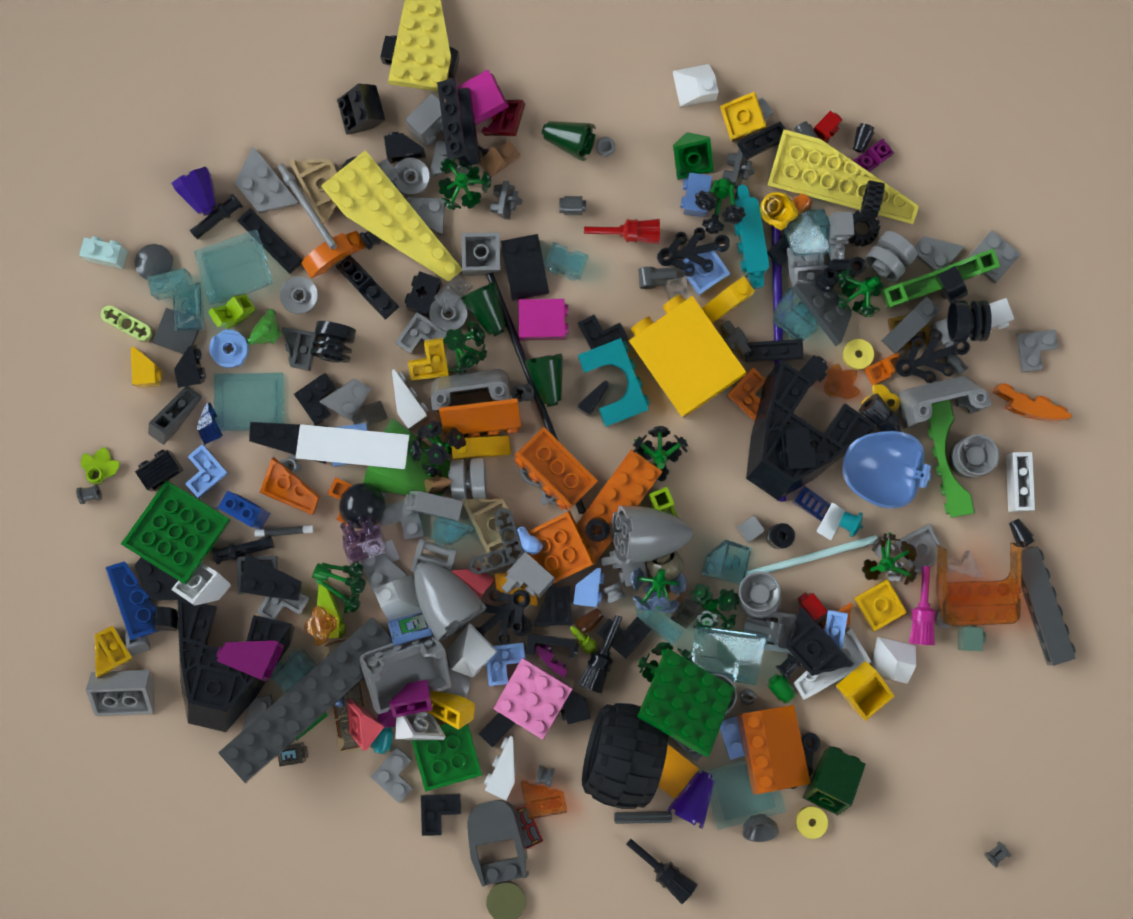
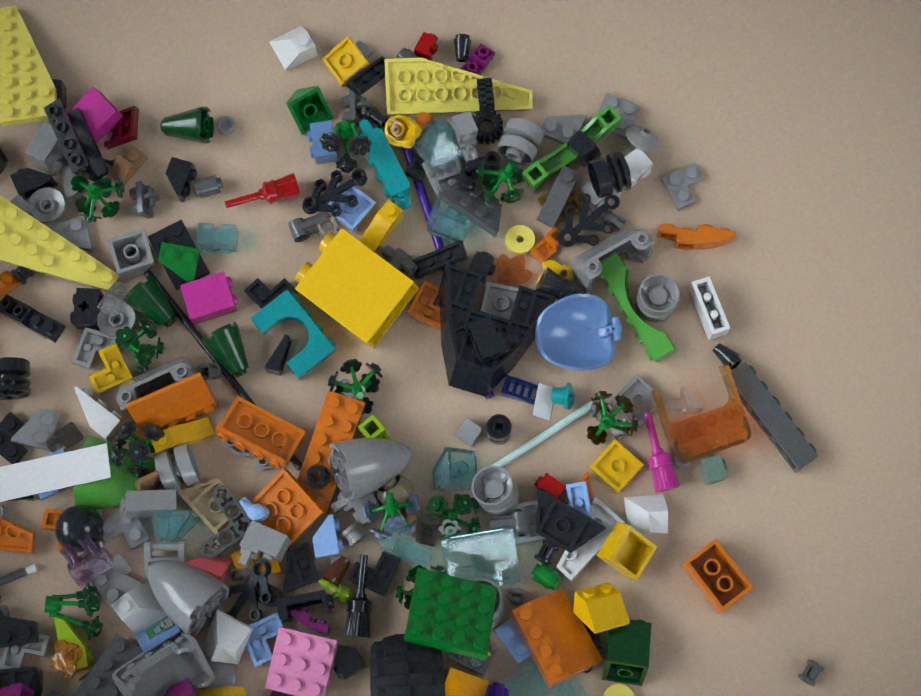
camera: 15 degrees left, 10 degrees down
(525, 273) = (179, 259): none -> green wing
(547, 186) = (181, 175): none -> black slope
(757, 185) = (377, 117): none -> black bush
(819, 410) = (499, 299): none -> light grey plate
(824, 736) = (600, 608): none -> yellow slope
(941, 740) = (717, 576): none -> orange brick
(1012, 289) = (642, 138): none -> light grey dish

